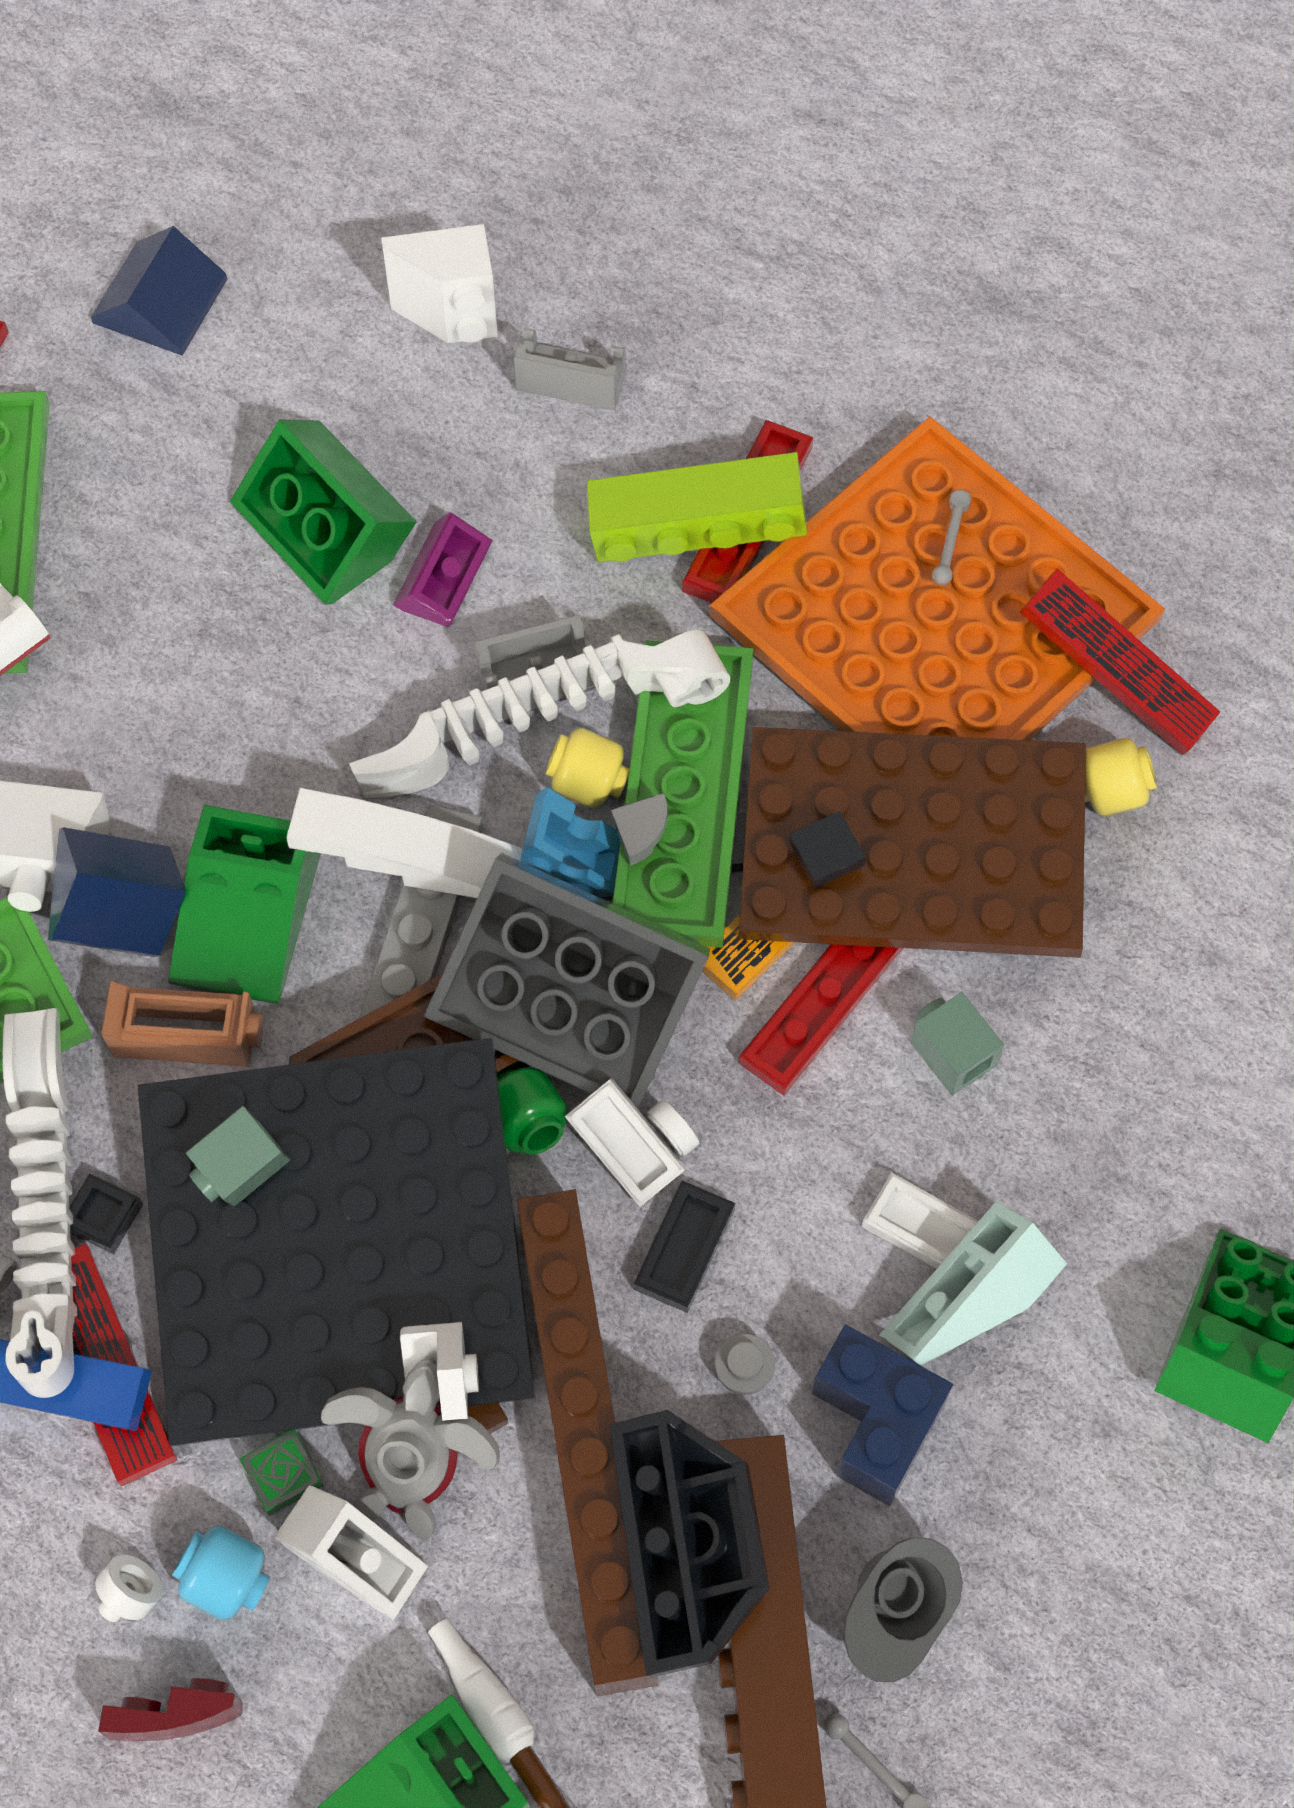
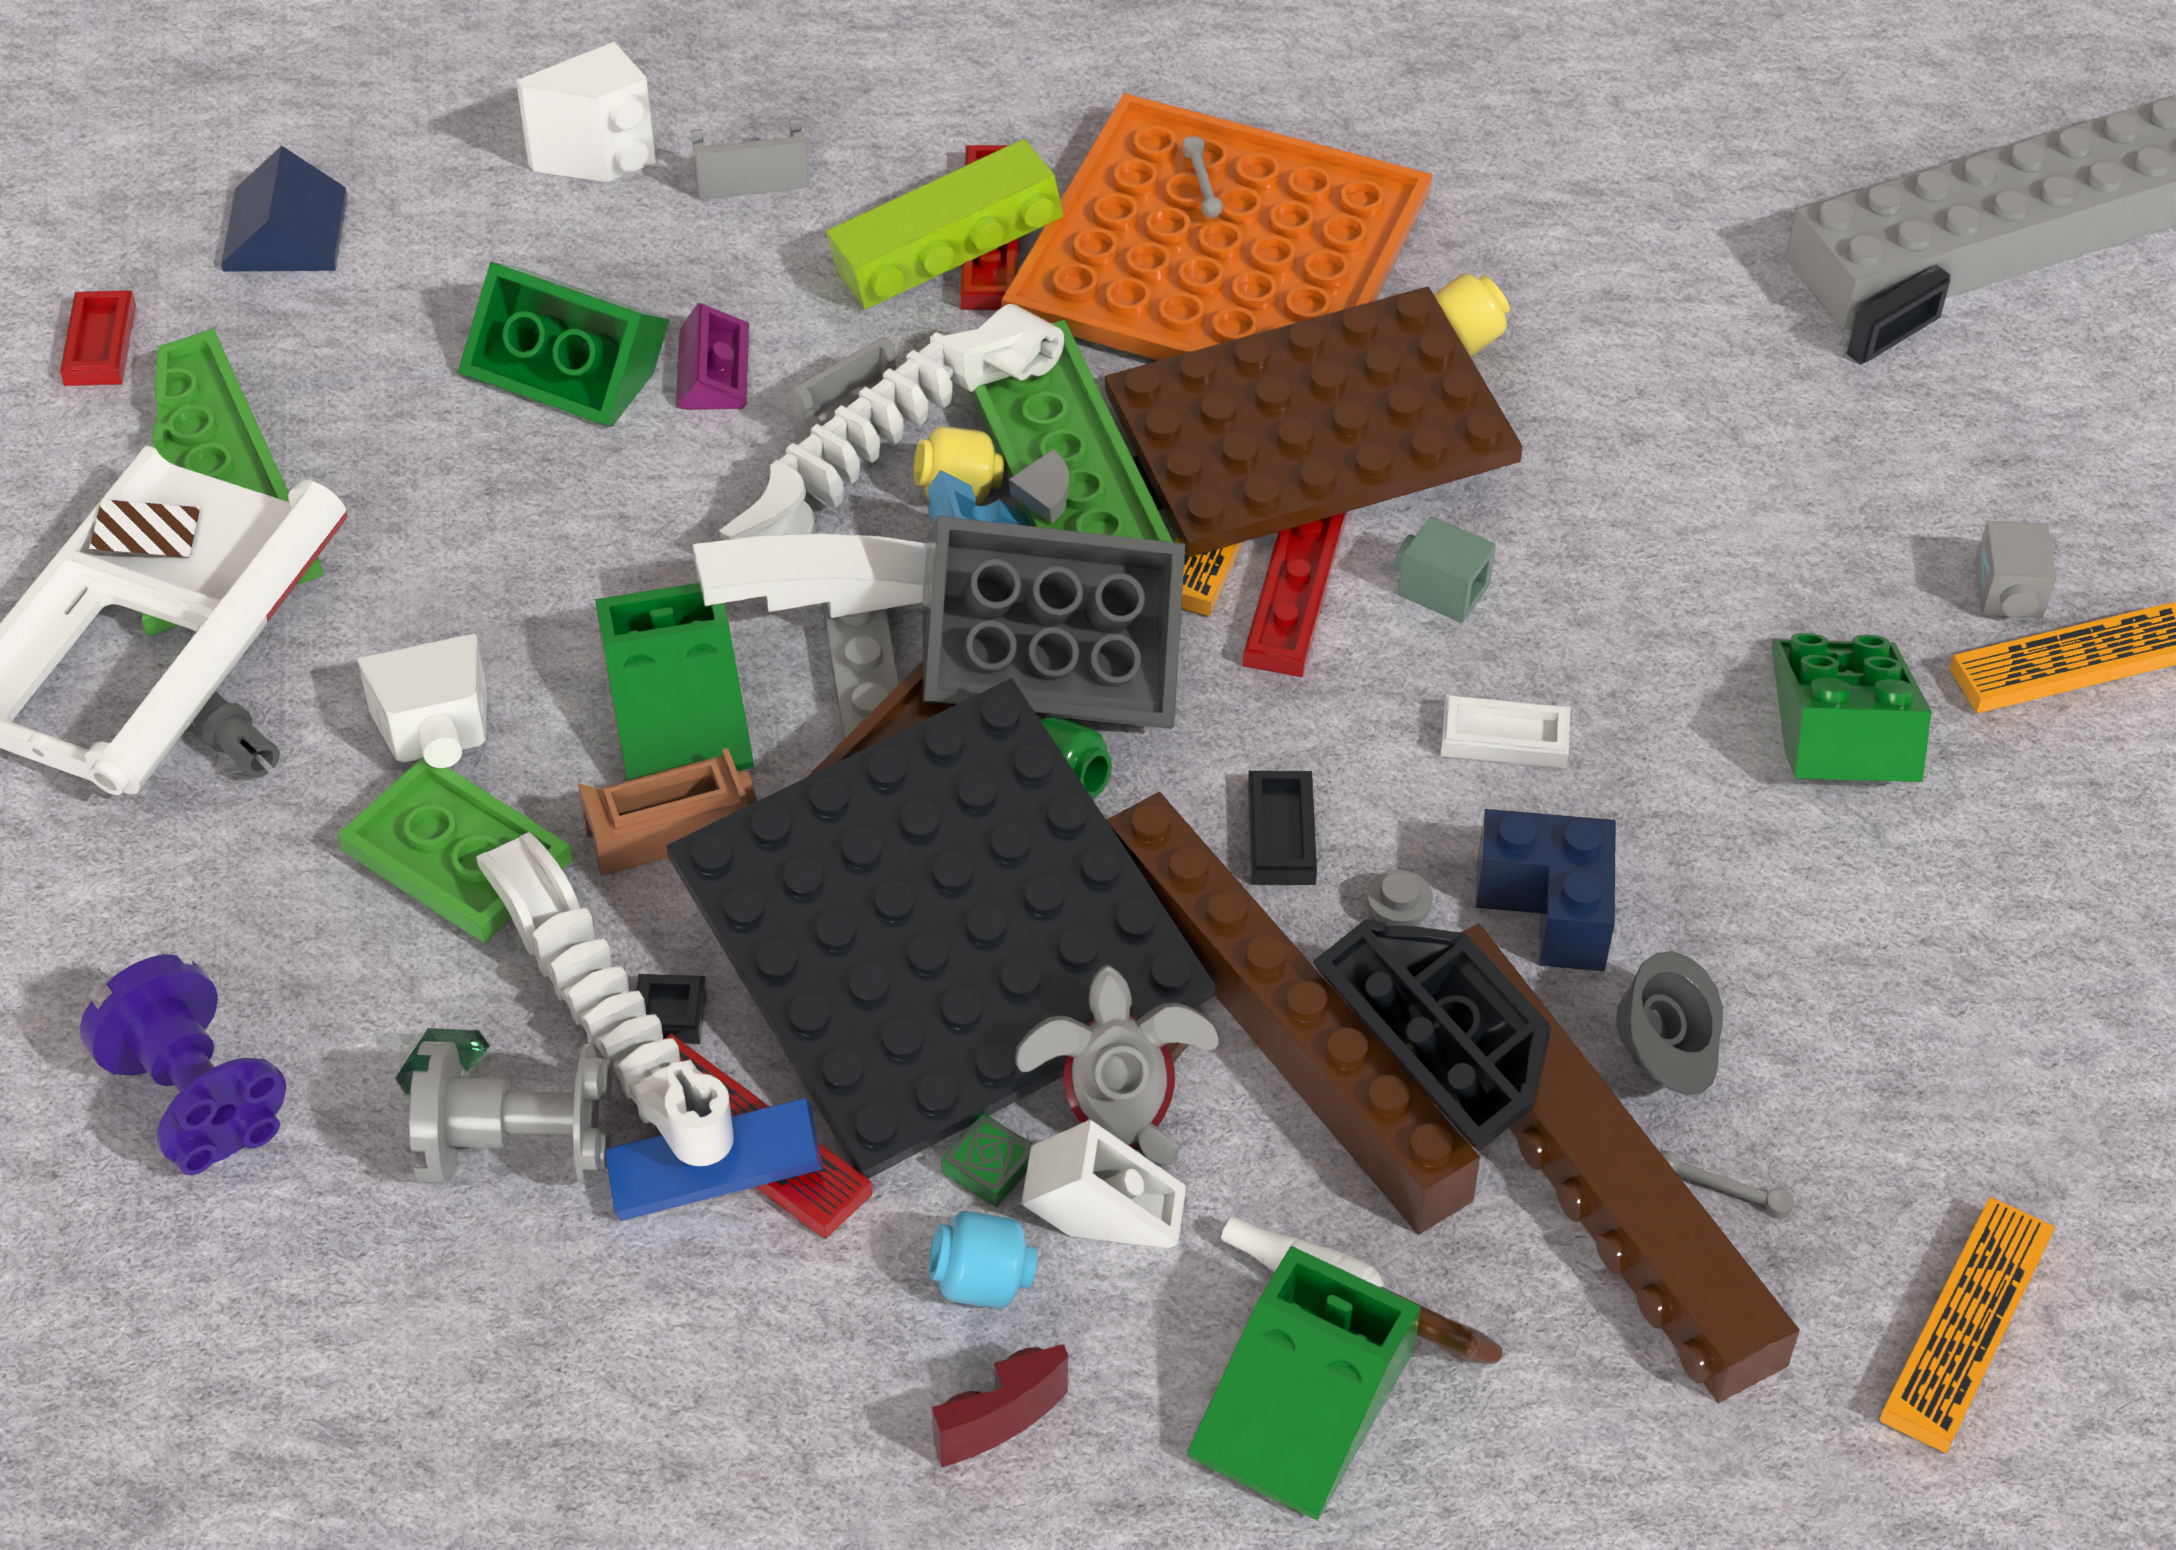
camera: 25 degrees left, 15 degrees down
(113, 893) = (538, 715): dark blue slope -> none
(127, 1589) = (889, 1314): white tile -> none
(235, 1158) = (814, 856): sand green brick -> none
(455, 1370) = (1128, 950): white bracket -> none
(625, 1142) = (1178, 752): white tile -> none
(672, 1128) = (1215, 728): white tile -> none
(827, 849) = (1239, 439): black tile -> none
(979, 1285) = (1589, 737): light aqua slope -> none
(1120, 662) = (1417, 222): red tile -> none

